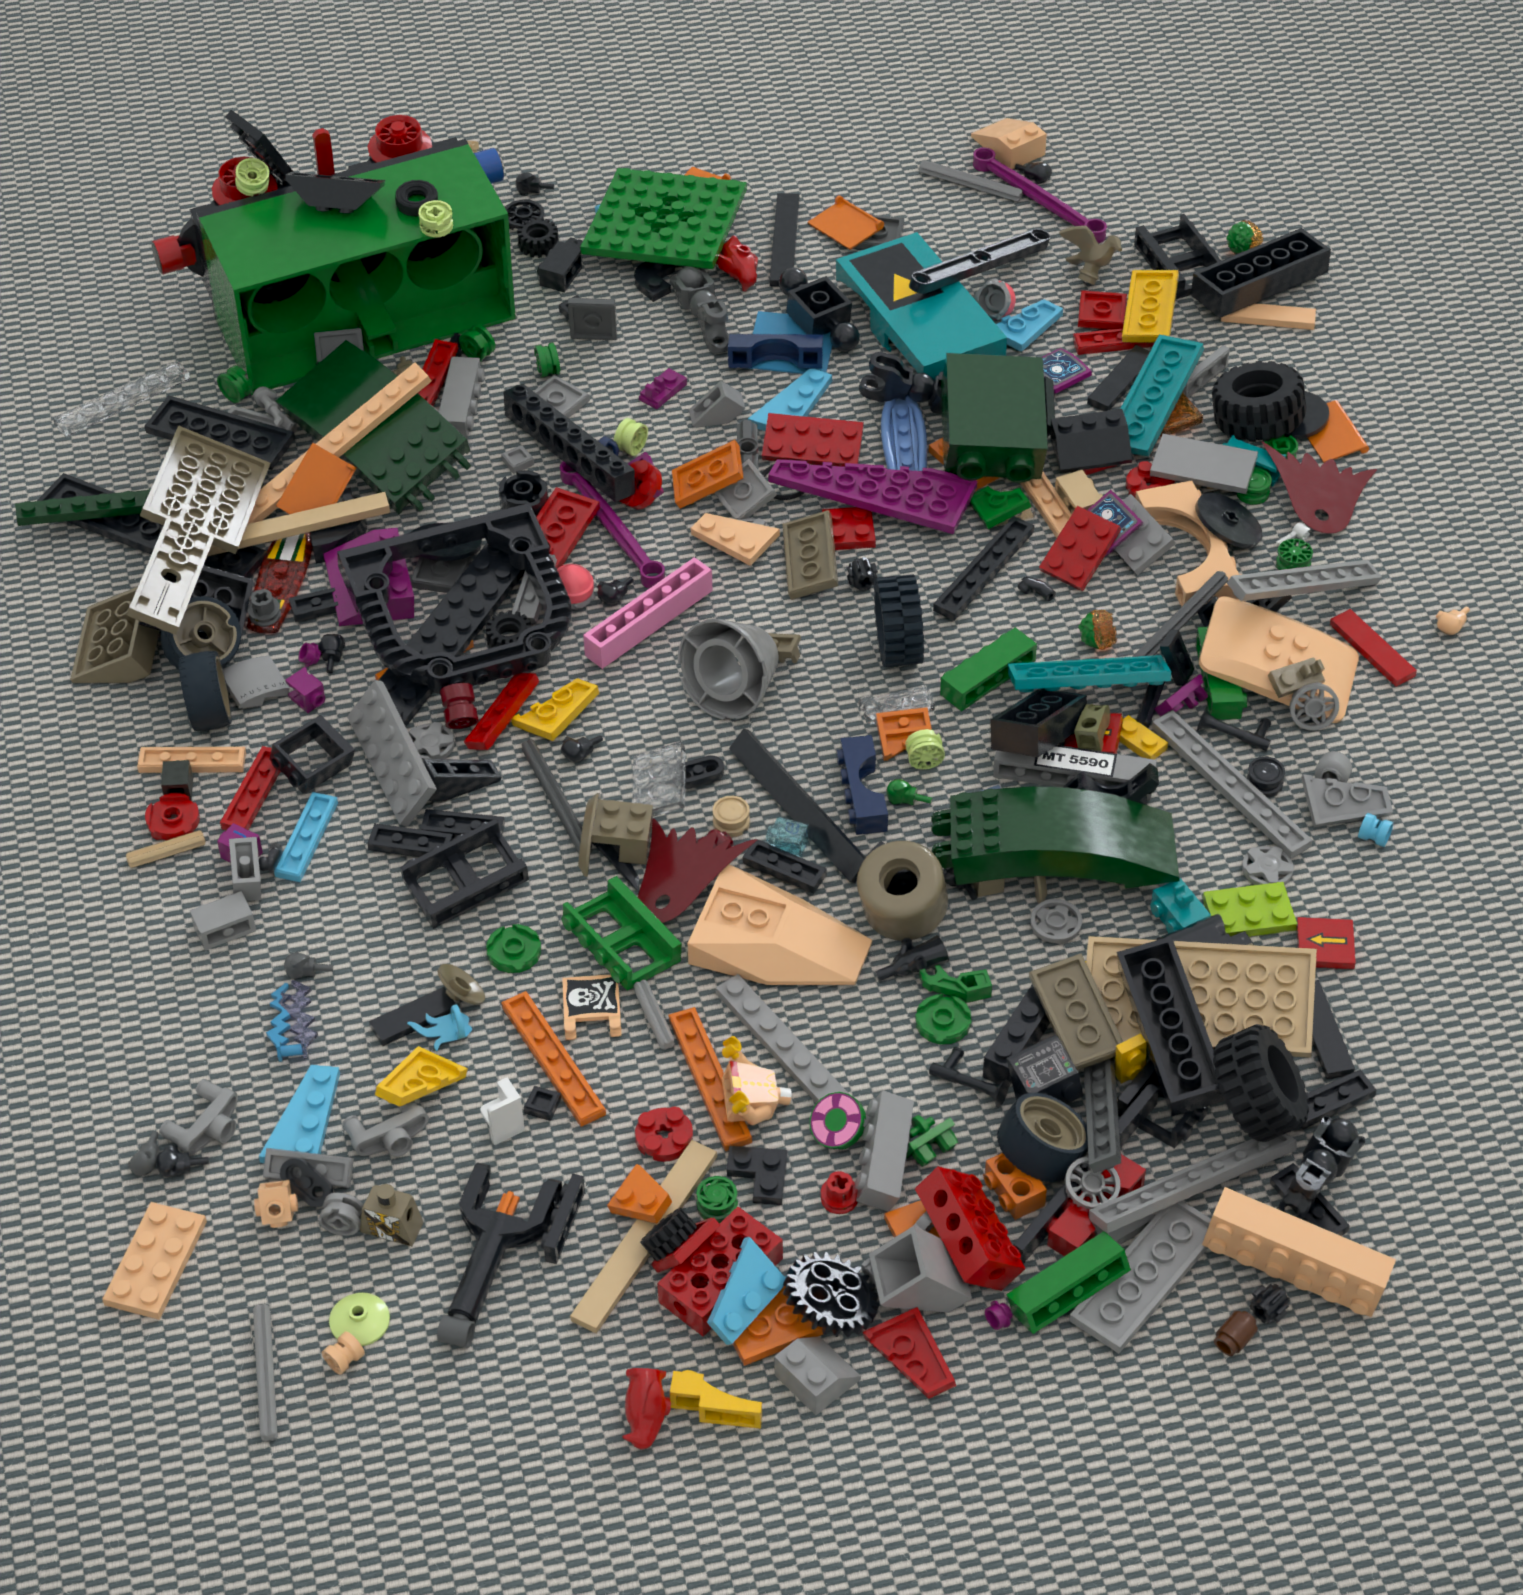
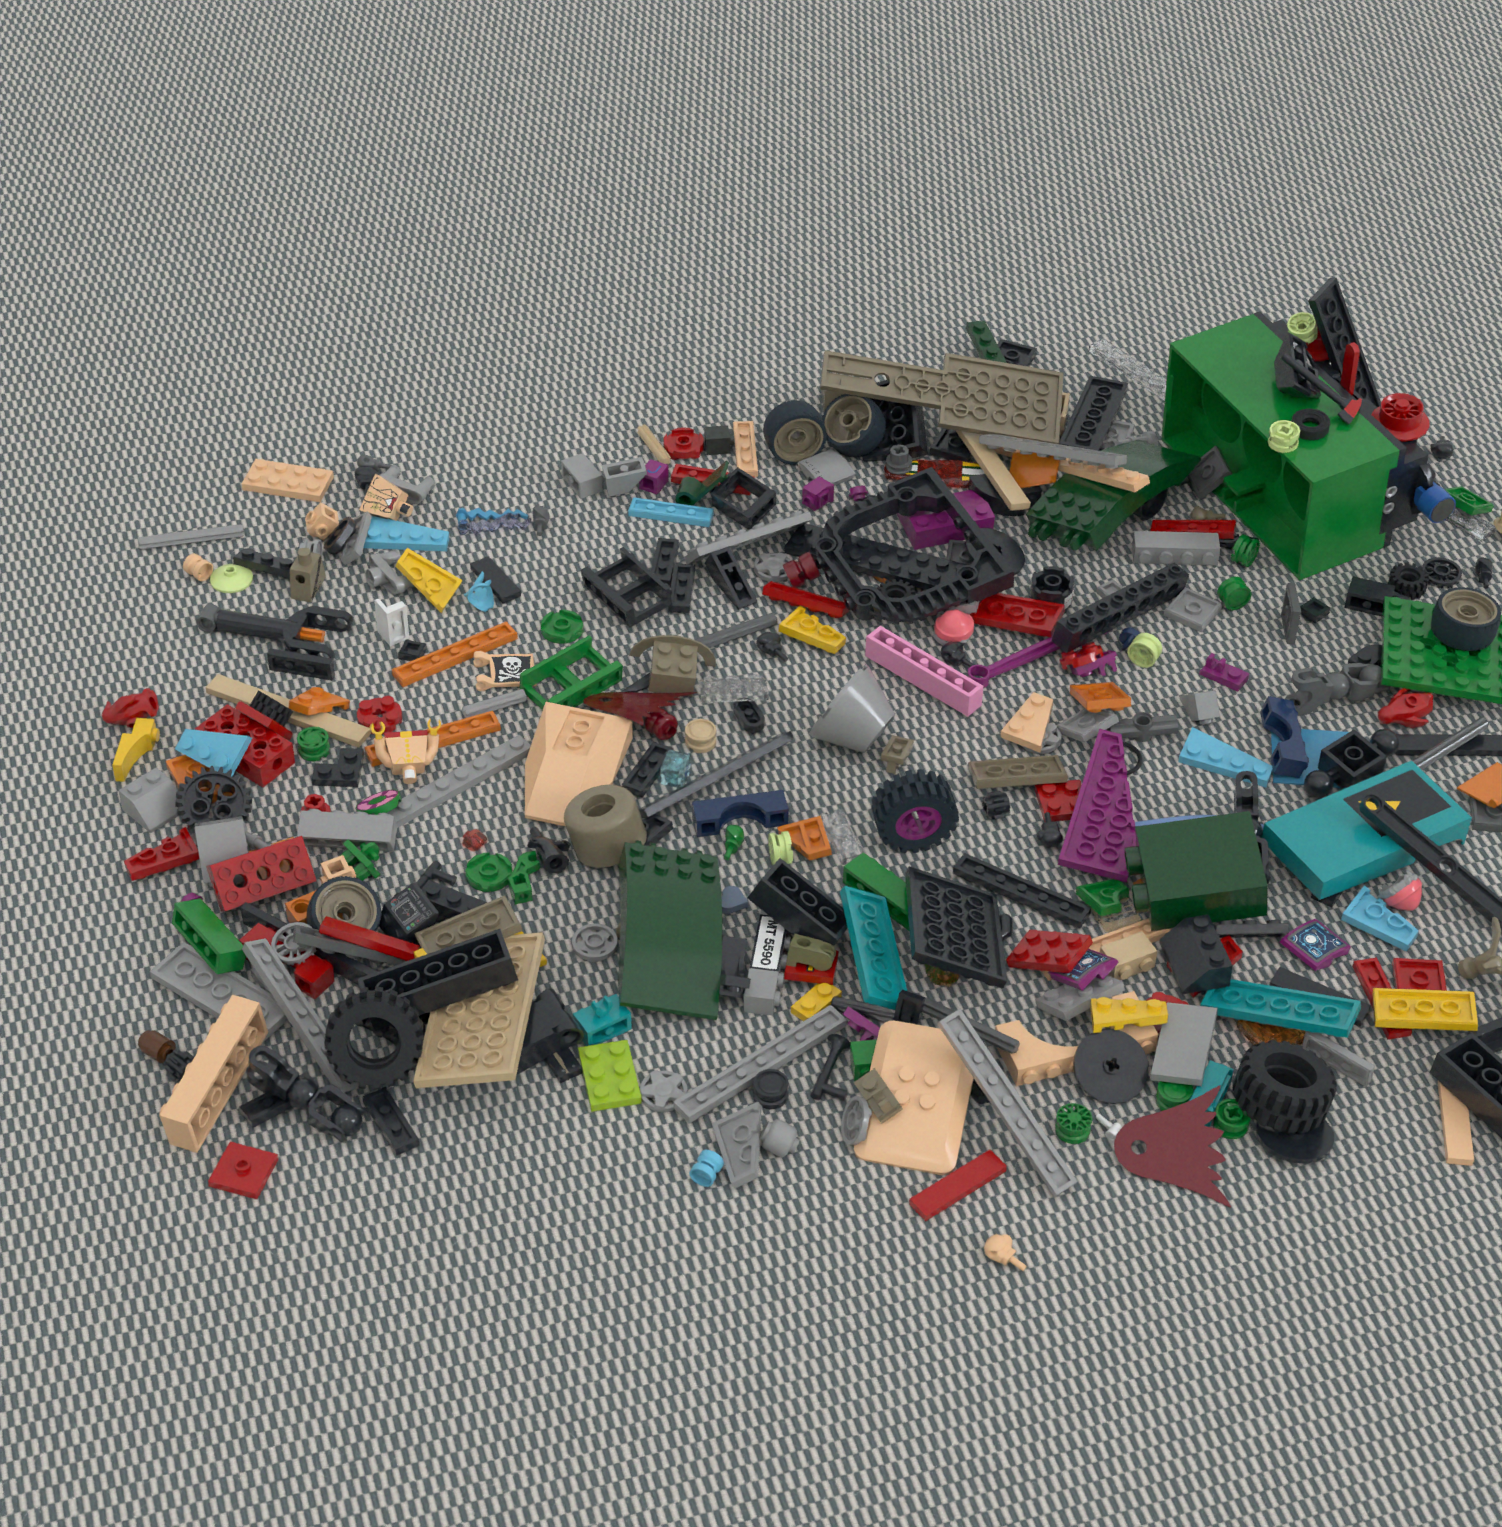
camera: 85 degrees right, 5 degrees down
(235, 384) = (1155, 421): green wheel -> none
(247, 1128) = (385, 500): none -> light nougat torso
(274, 855) = (642, 492): black arm -> none
(284, 792) = (692, 490): none -> dark green door
(323, 448) = (1059, 451): none -> light grey plate
(342, 1273) = (263, 562): none -> black plate
(391, 164) = (1348, 407): none -> black piece
(460, 985) = (526, 592): dark tan dish -> none
(644, 186) = (1466, 618): none -> wheel
(797, 245) = (1451, 743): none -> dark grey axle
(812, 440) = (1168, 769): red plate -> none
(888, 1034) = (474, 840): none -> clear red piece
(904, 539) = (1050, 833): none -> black piece
(966, 1154) = (335, 868): none -> light nougat brick
(1063, 606) = (955, 927): none -> black plate
(1095, 1102) = (368, 938): none -> red tile
(1176, 495) = (1117, 1013): none -> yellow wing
(1328, 1039) = (472, 1121): black tile -> none
(1332, 940) = (571, 1128): red tile -> none
(1338, 436) = (1270, 1174): orange piece -> none
(1409, 1237) = (243, 1170): none -> red plate

